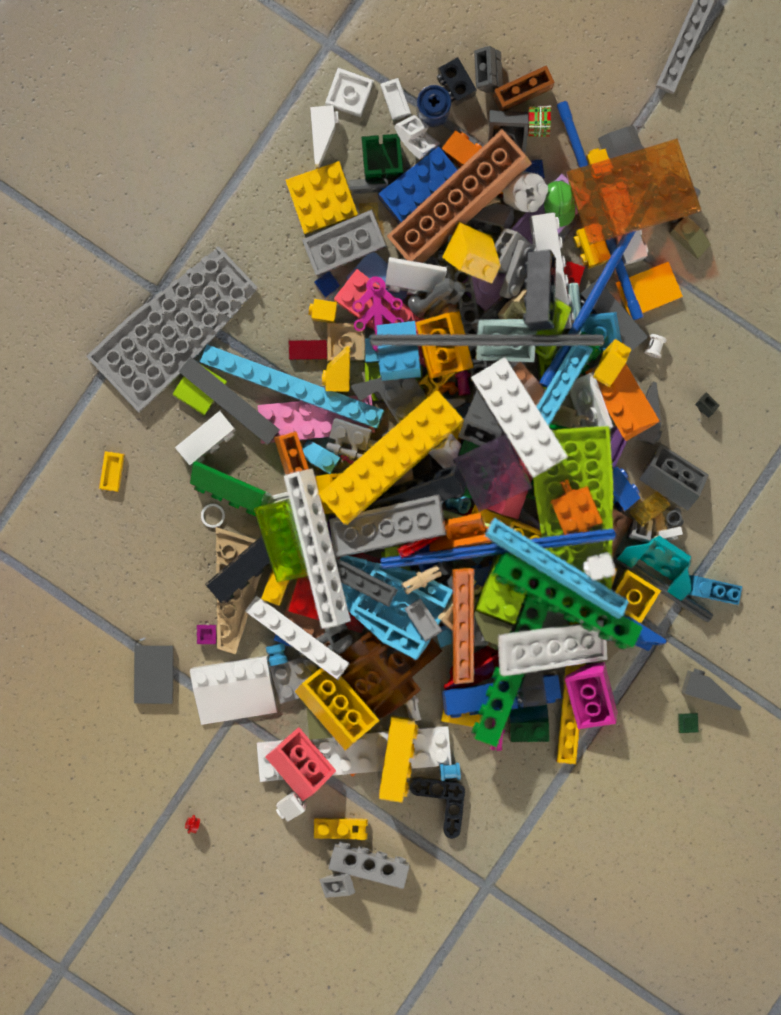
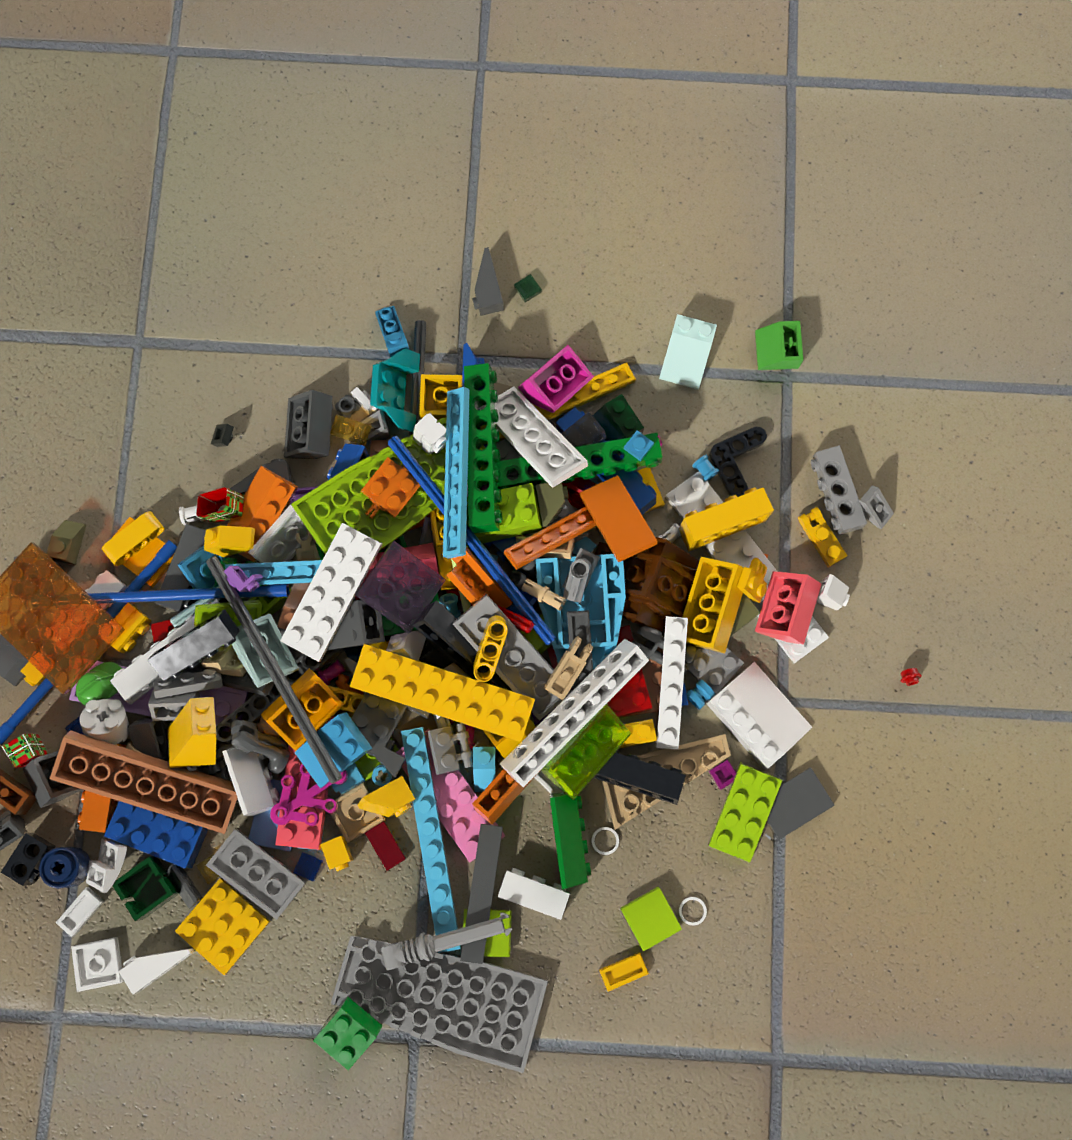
camera: 120 degrees left, 10 degrees down
(123, 538) = (704, 913): none -> white piece
(136, 514) = (651, 918): none -> lime slope
(169, 632) = (745, 812): none -> lime plate
(189, 246) = (348, 1033): none -> green brick
(215, 337) = (426, 946): none -> light grey piece
(336, 748) = (752, 580): none -> yellow hinge
(352, 562) = (568, 669): none -> tan hinge
(359, 371) = (378, 781): none -> medium azure bush
(394, 508) = (490, 659): none -> yellow beam
(416, 611) = (577, 582): none -> light grey piece
(446, 673) = (618, 518): none -> orange tile
(493, 725) = (638, 445): none -> dark azure plate
(514, 895) = (779, 346): none -> bright green slope
(554, 818) = (688, 351): none -> light aqua slope
(572, 352) = (239, 580): none -> medium lavender bracket
(650, 360) = (209, 509): none -> piece
(661, 289) = (133, 538): none -> yellow beam

